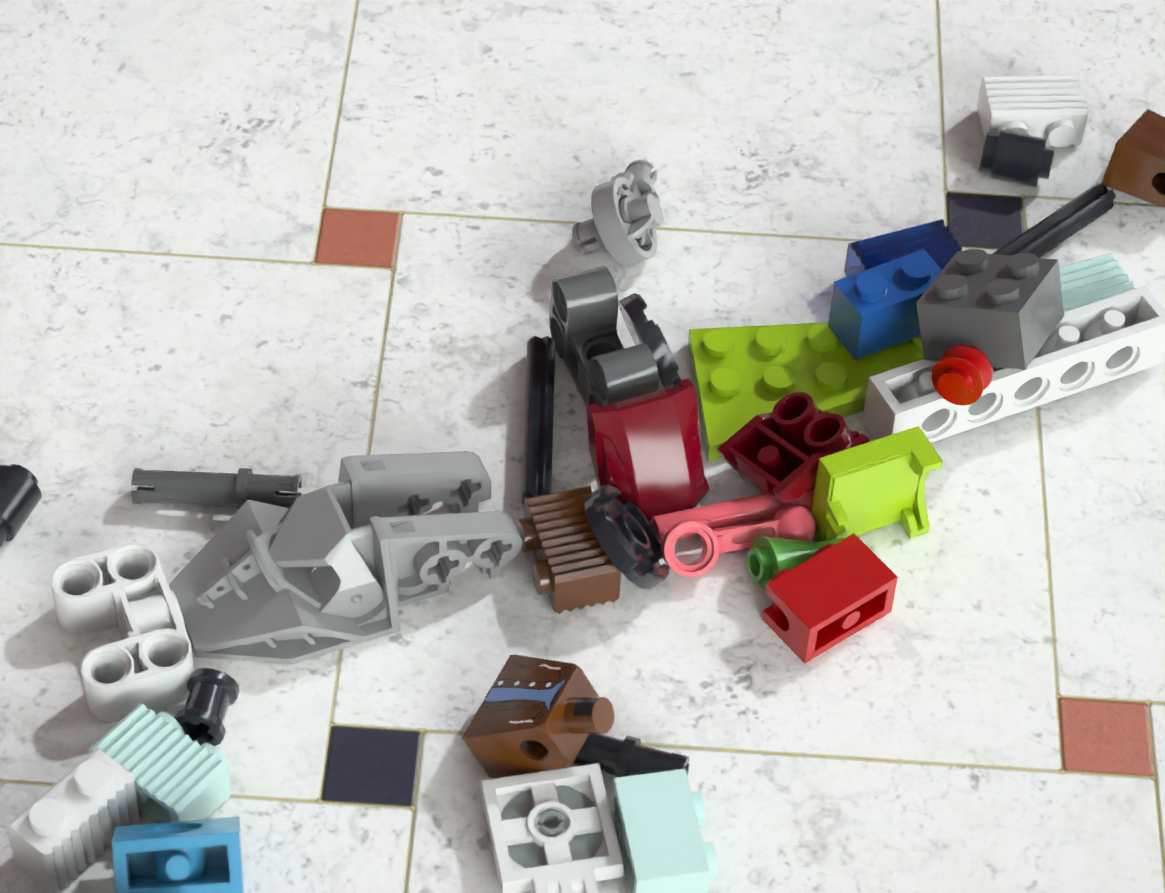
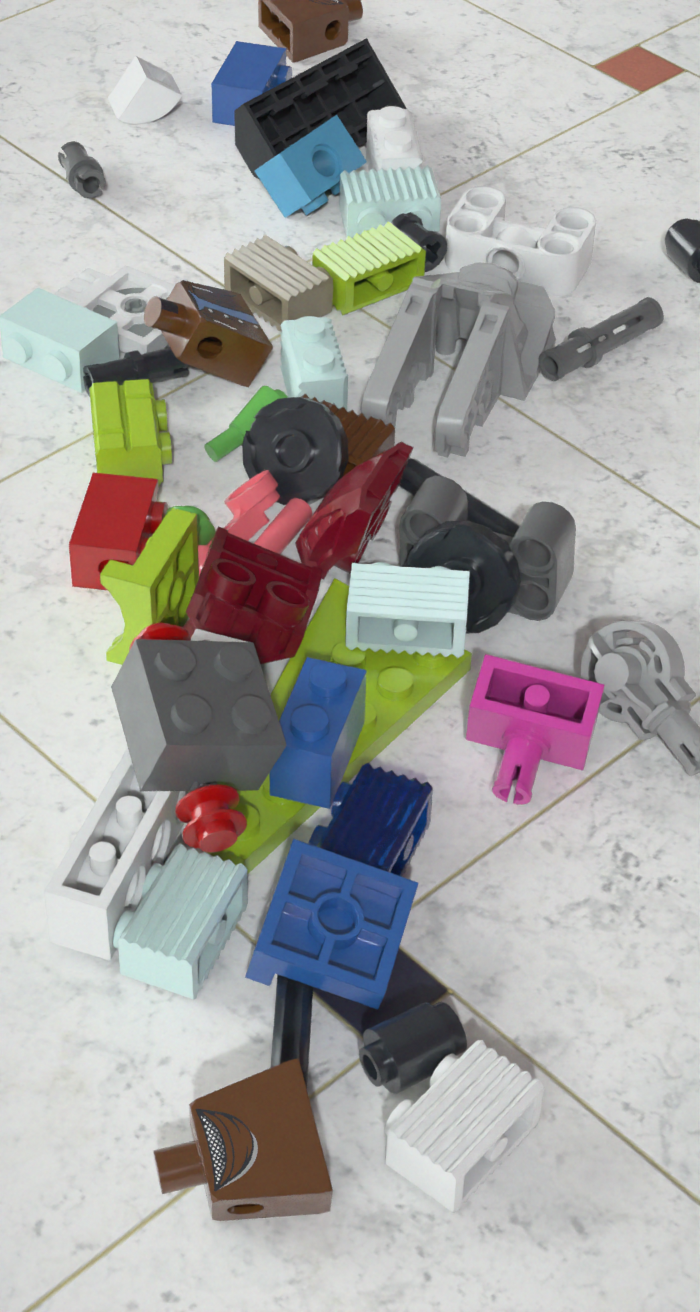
camera: 135 degrees right, 5 degrees down
(292, 706) = (370, 266): none -> lime brick
(392, 751) = (277, 282): none -> dark tan brick
(500, 619) = (313, 361): none -> light aqua brick
(590, 624) = (234, 435): none -> bright green cone
(717, 685) = (128, 428): none -> lime brick
(721, 345) = (407, 609): none -> light aqua brick
(725, 243) = (533, 719): none -> dark pink brick
(1003, 218) = (333, 925): none -> blue piece

